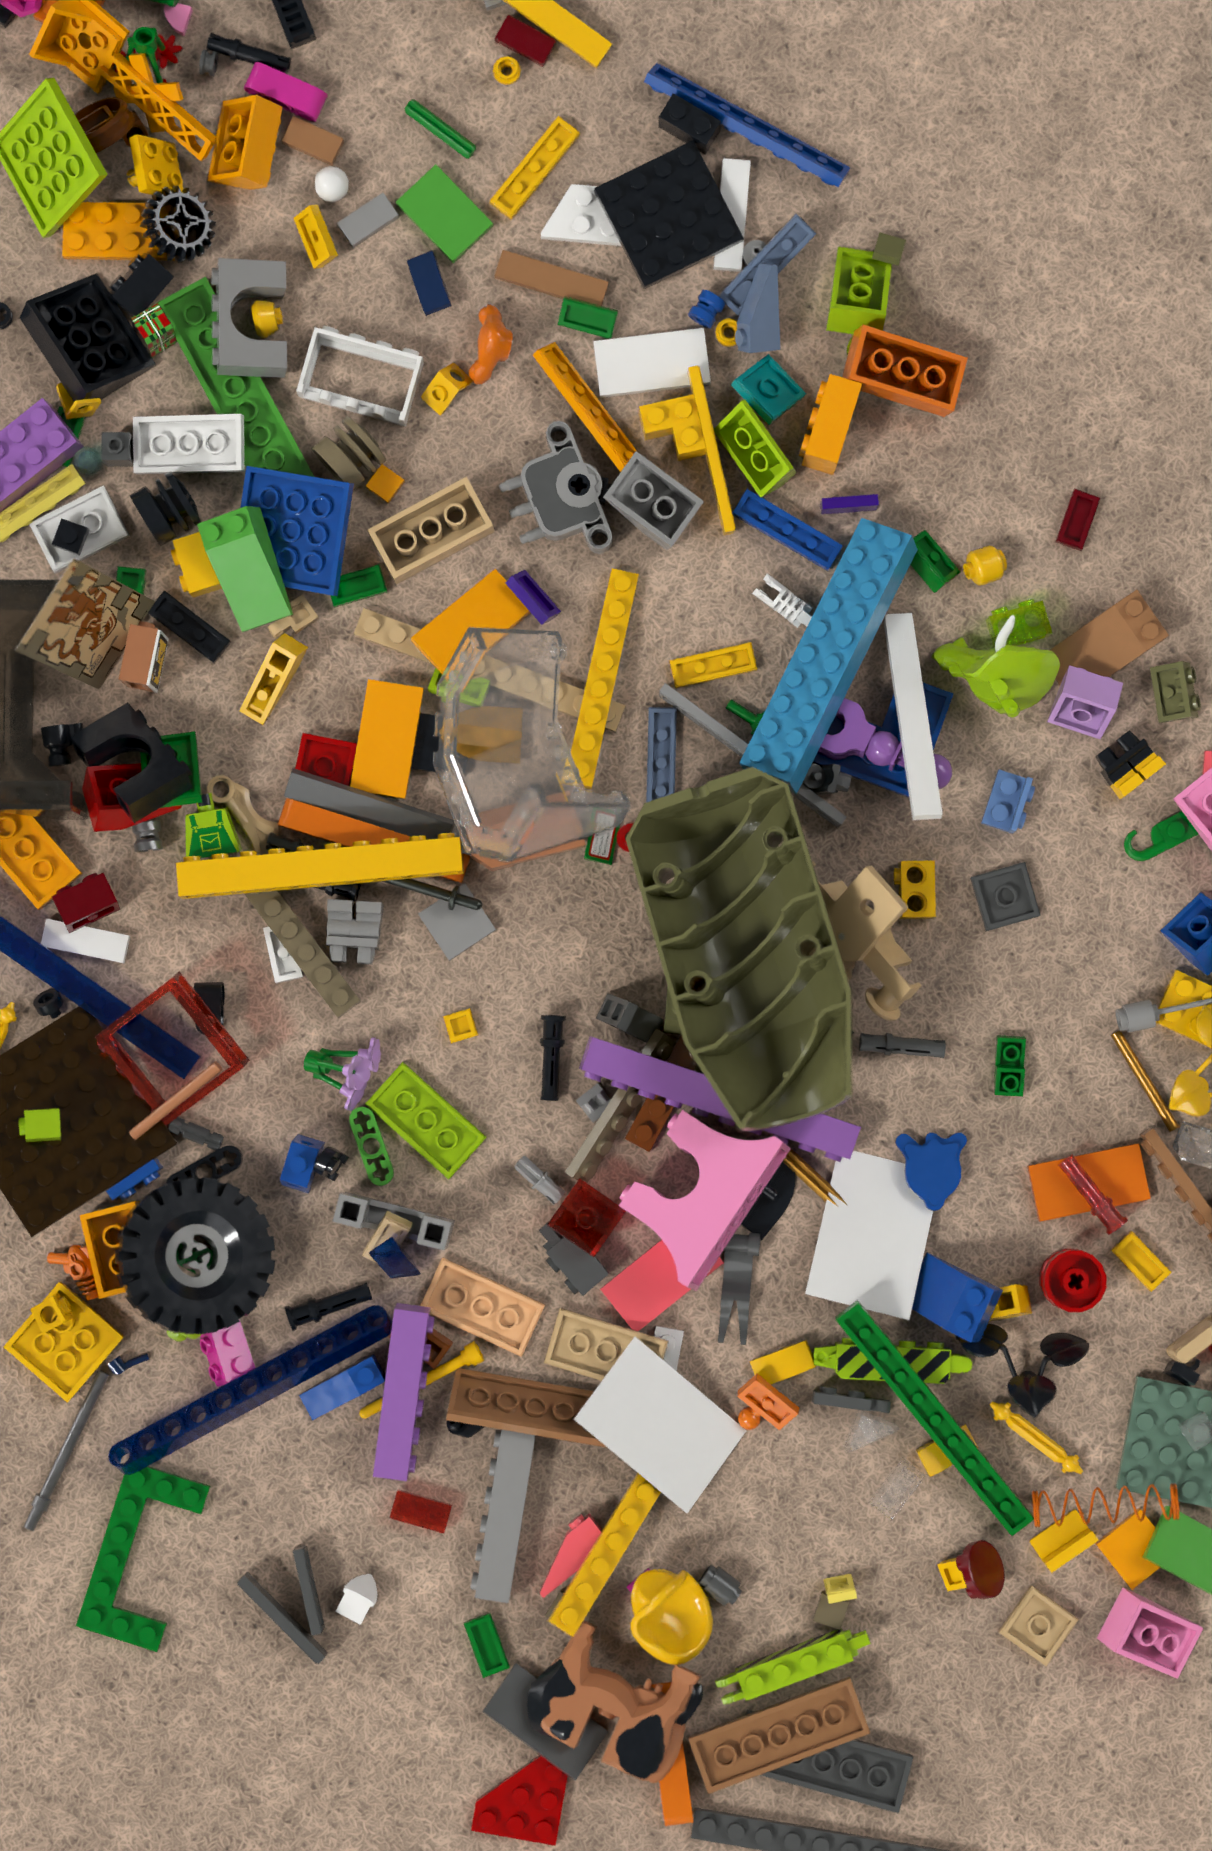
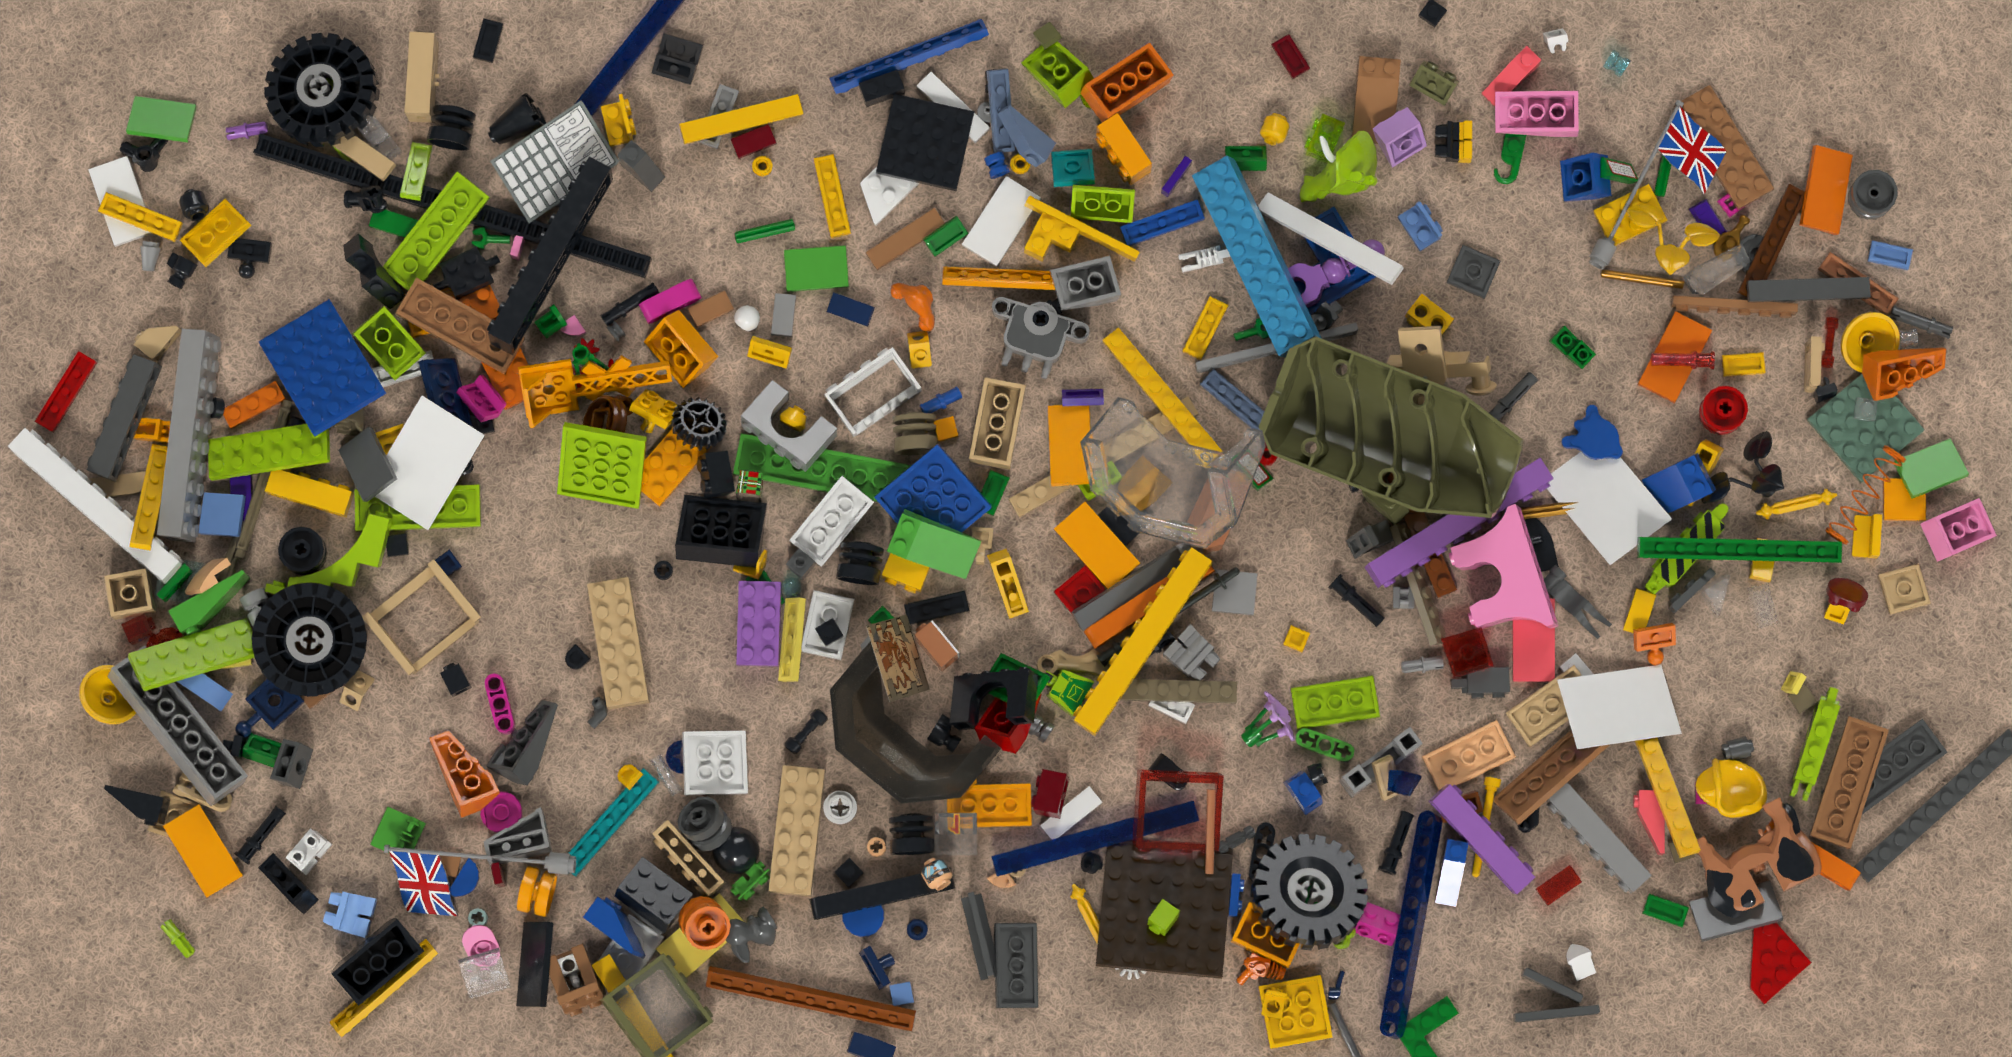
camera: 50 degrees left, 5 degrees down
(409, 454) = (941, 401): none -> blue pin

